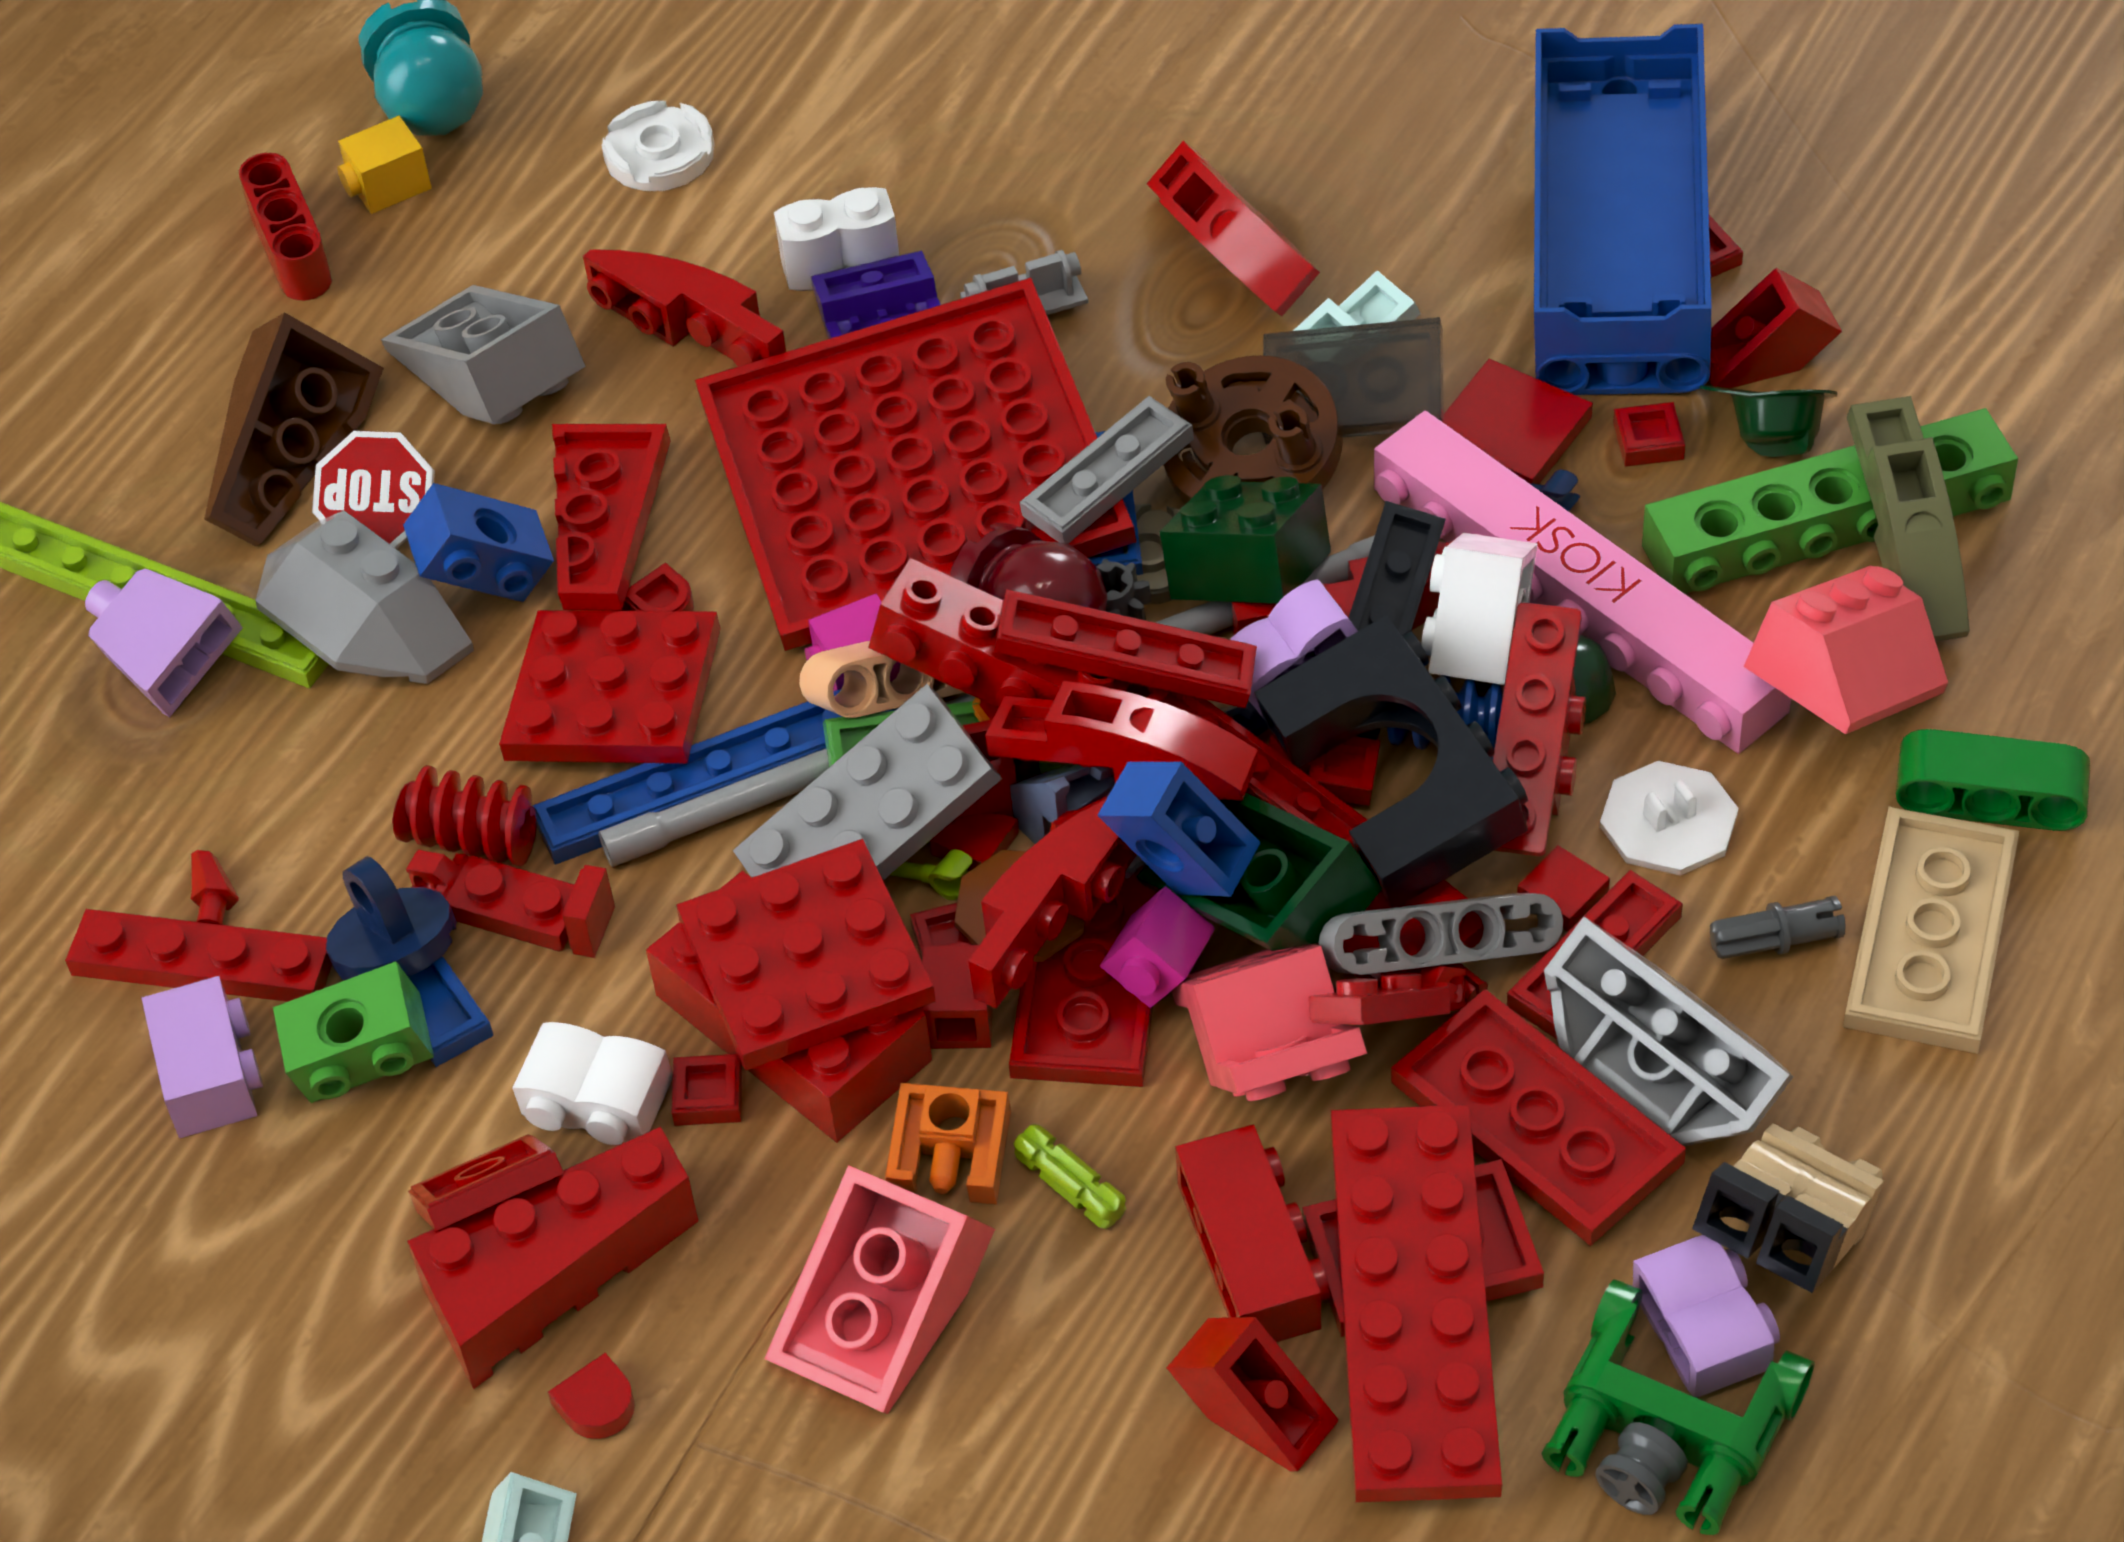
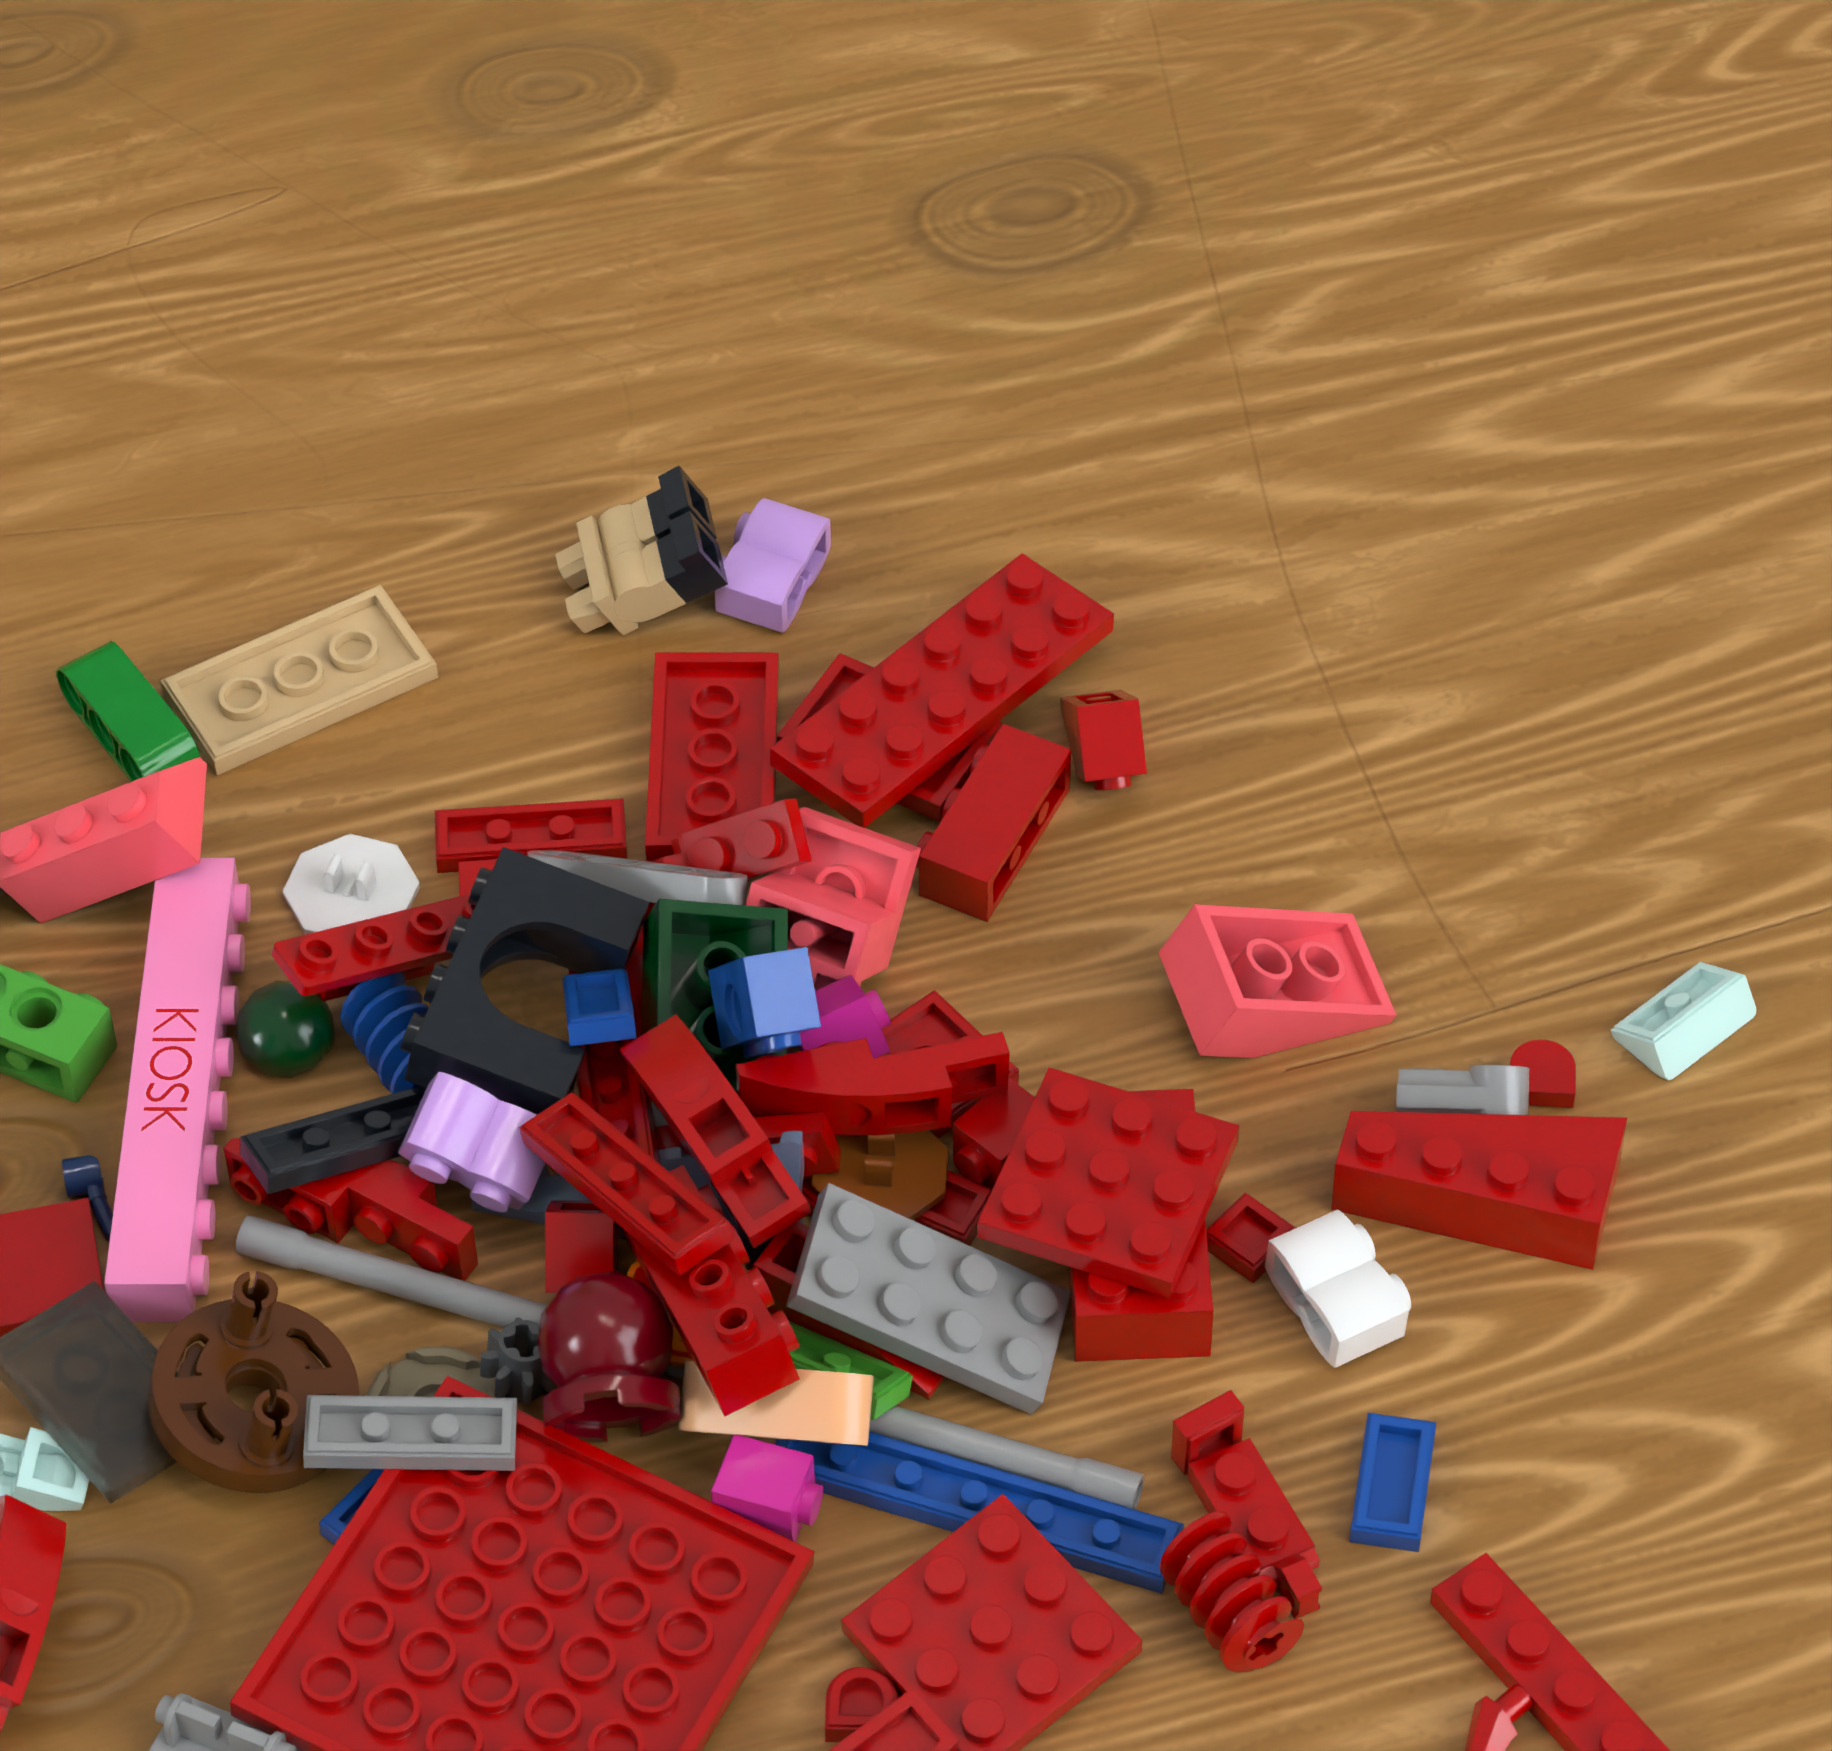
camera: 140 degrees left, 0 degrees up
(200, 1056) = (1625, 1558): lavender brick -> none
(319, 1030) = (1504, 1493): bright green brick -> none
(388, 924) = (1384, 1538): dark blue tile -> none
(484, 1181) = (1495, 1249): red tile -> none
(631, 1299) = (1477, 1091): none -> light grey piece
(979, 1138) = (1104, 1050): orange brick -> none
(1070, 1176) = (1060, 967): lime axle -> none
(1245, 540) = (388, 1275): dark green brick -> none
(1318, 780) = (598, 1007): none -> blue tile
(1479, 595) = (304, 1050): white brick -> none
(1641, 1468) = (921, 517): dark grey wheel -> none
(1658, 1041) = (586, 702): light grey wedge -> none
(1718, 1442) = (886, 569): green connector -> none
(1777, 928) = (398, 744): dark grey axle -> none

